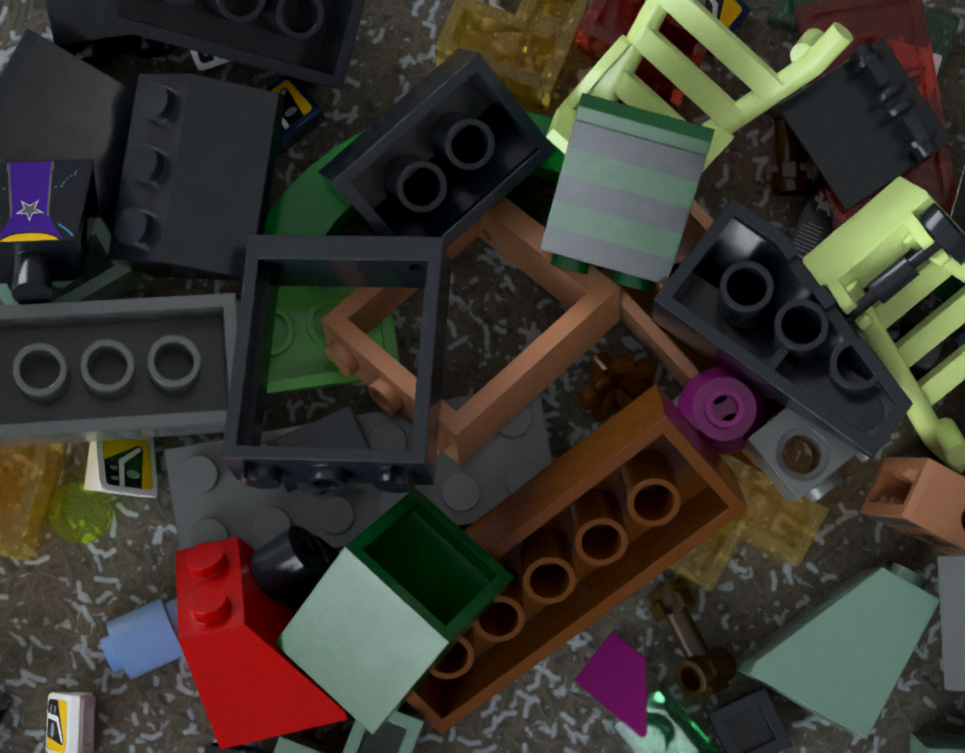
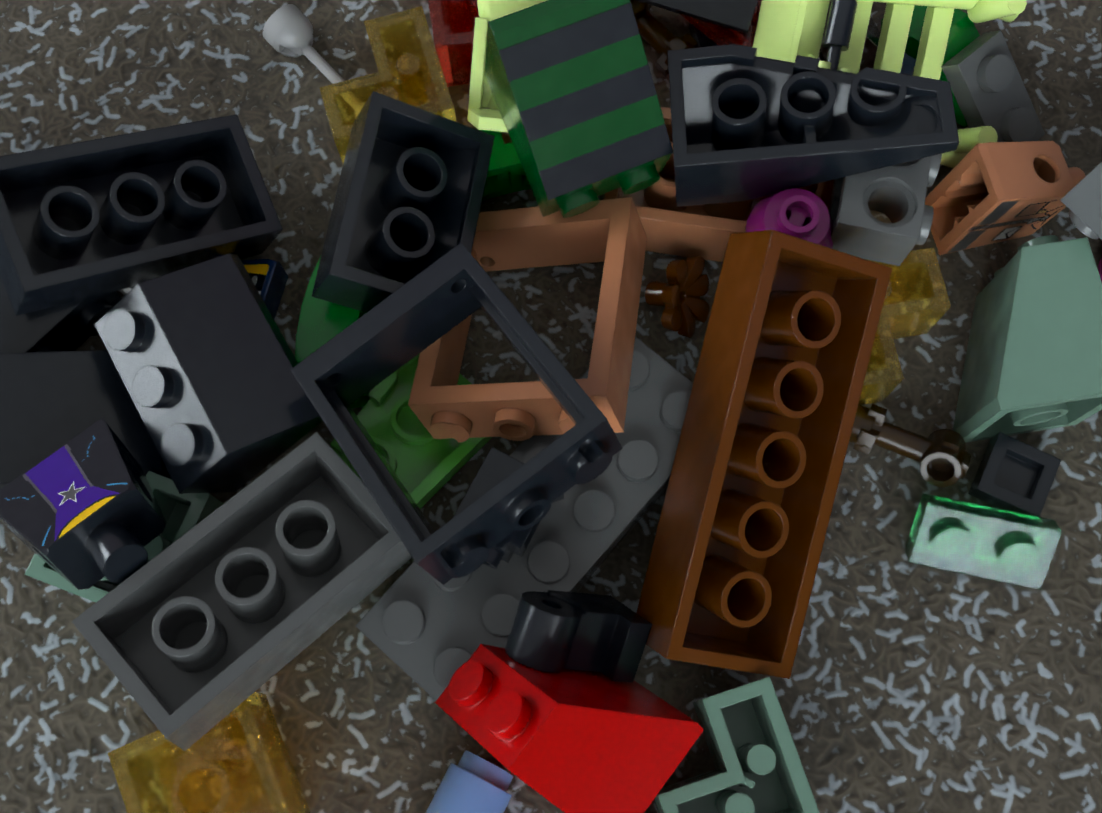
camera: 40 degrees left, 10 degrees down
(80, 514) = (322, 747): clear neon green tile -> none
(122, 467) = (328, 676): slope -> none
(392, 608) = (679, 590): slope -> none
(619, 682) = (886, 520): magenta sticker -> none

